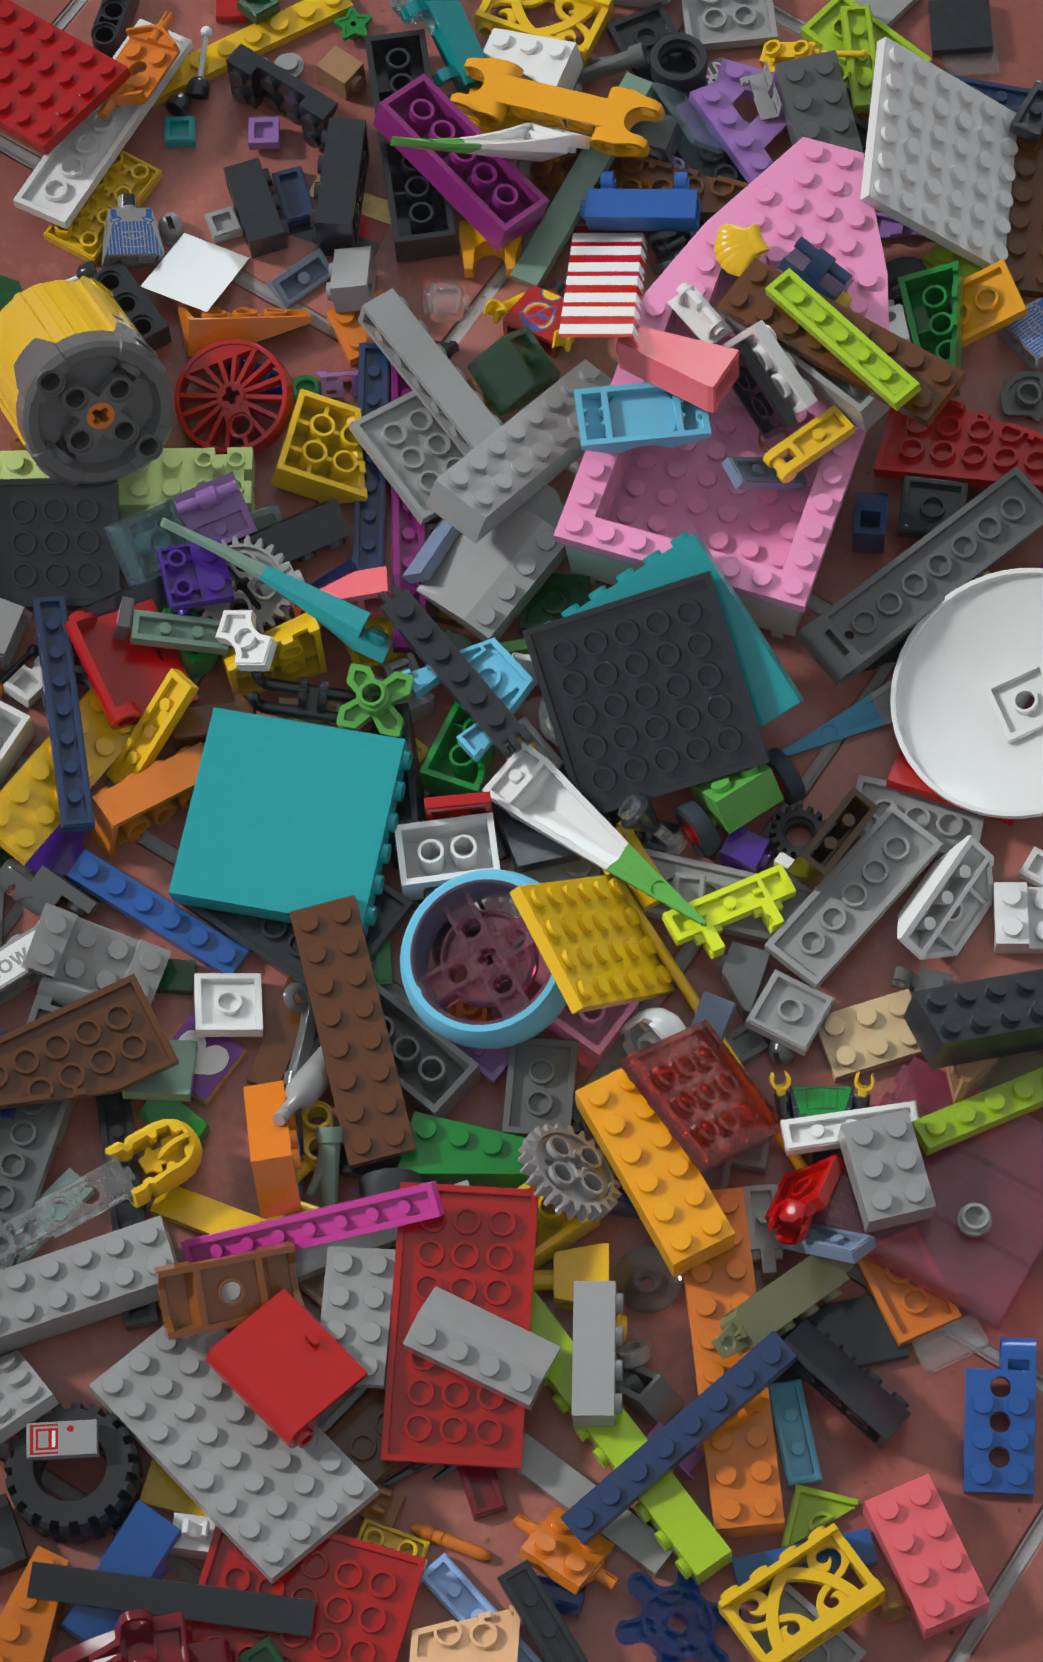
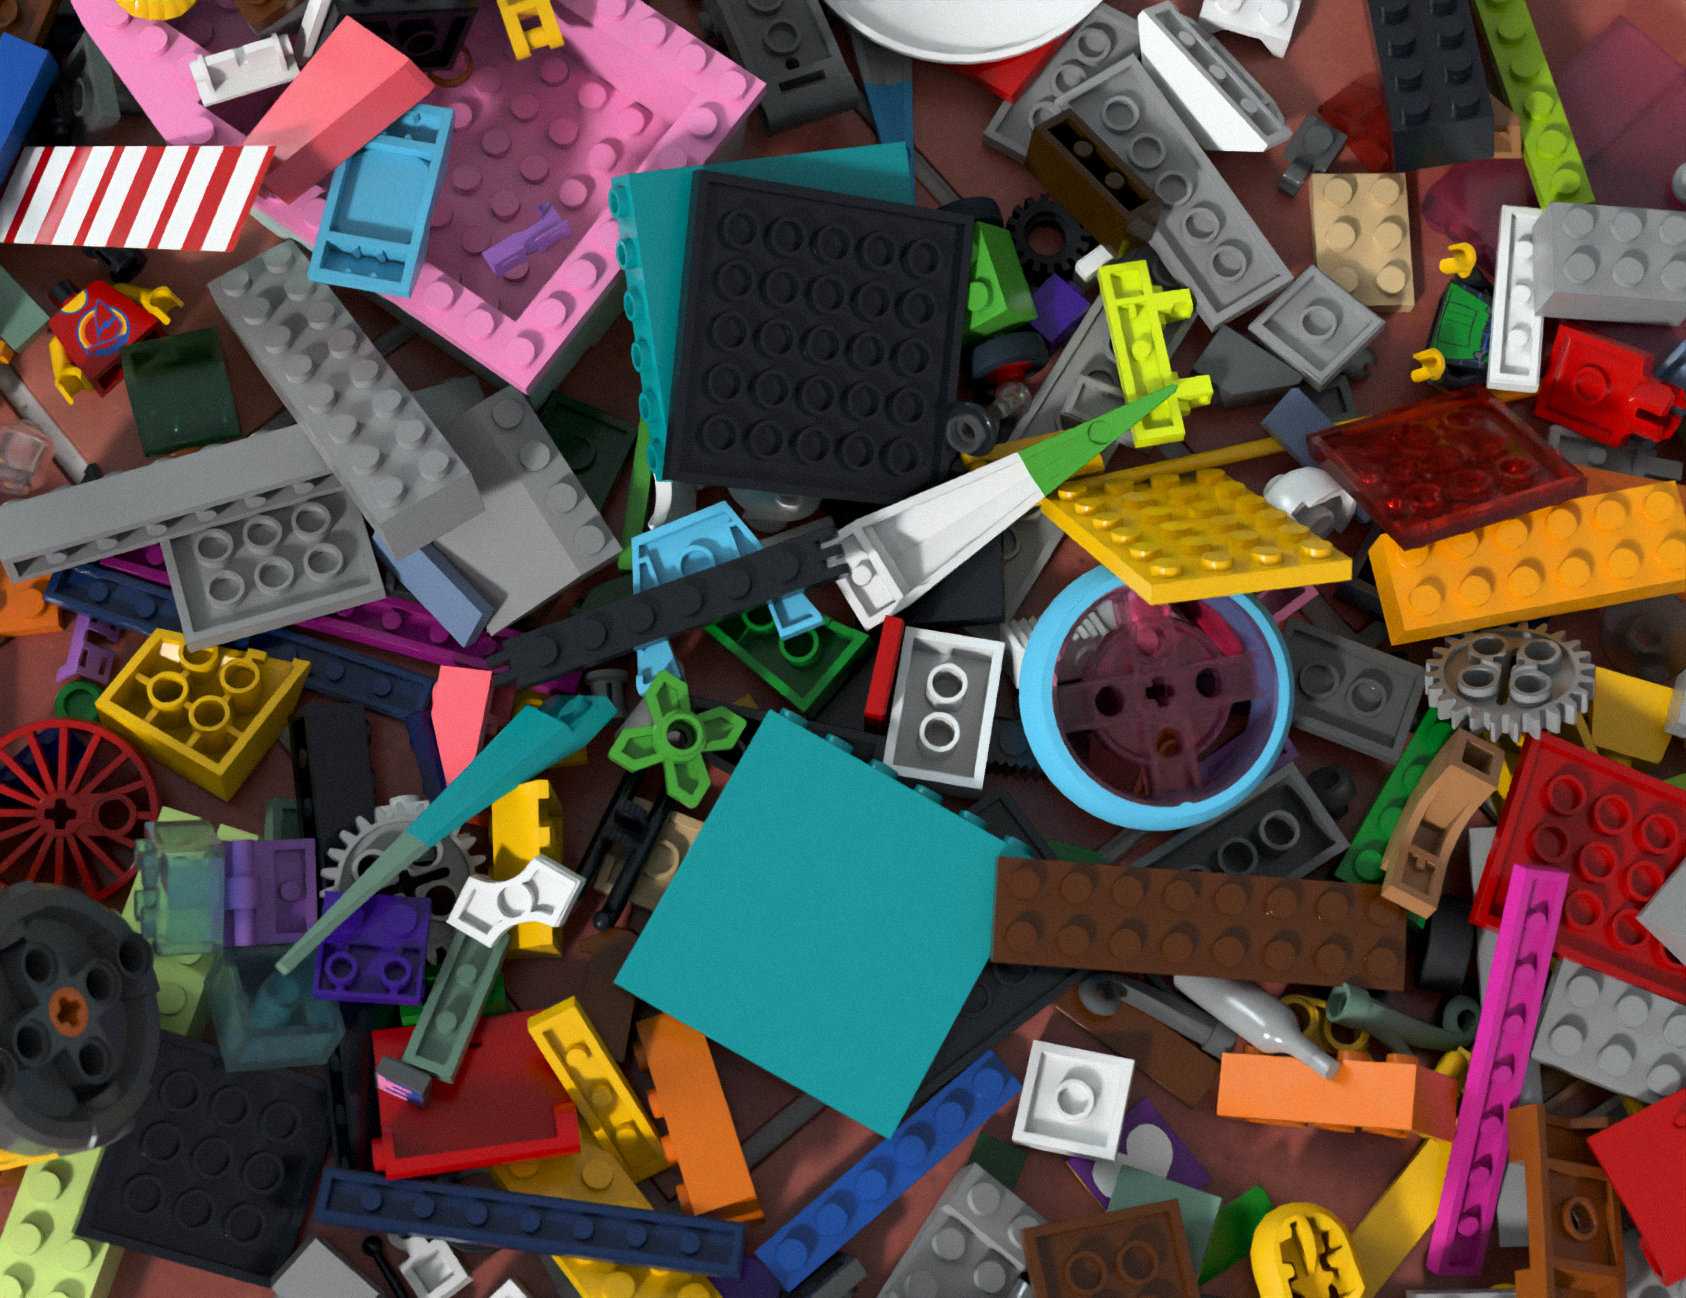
camera: 80 degrees left, 10 degrees up
(197, 459) = (182, 887): none -> clear light blue brick
(456, 1150) = (1434, 818): none -> medium nougat arch
(475, 1106) = (1333, 788): none -> dark grey tile
(643, 502) = (518, 246): none -> medium lavender piece
(754, 474) = (516, 84): sand blue tile -> none

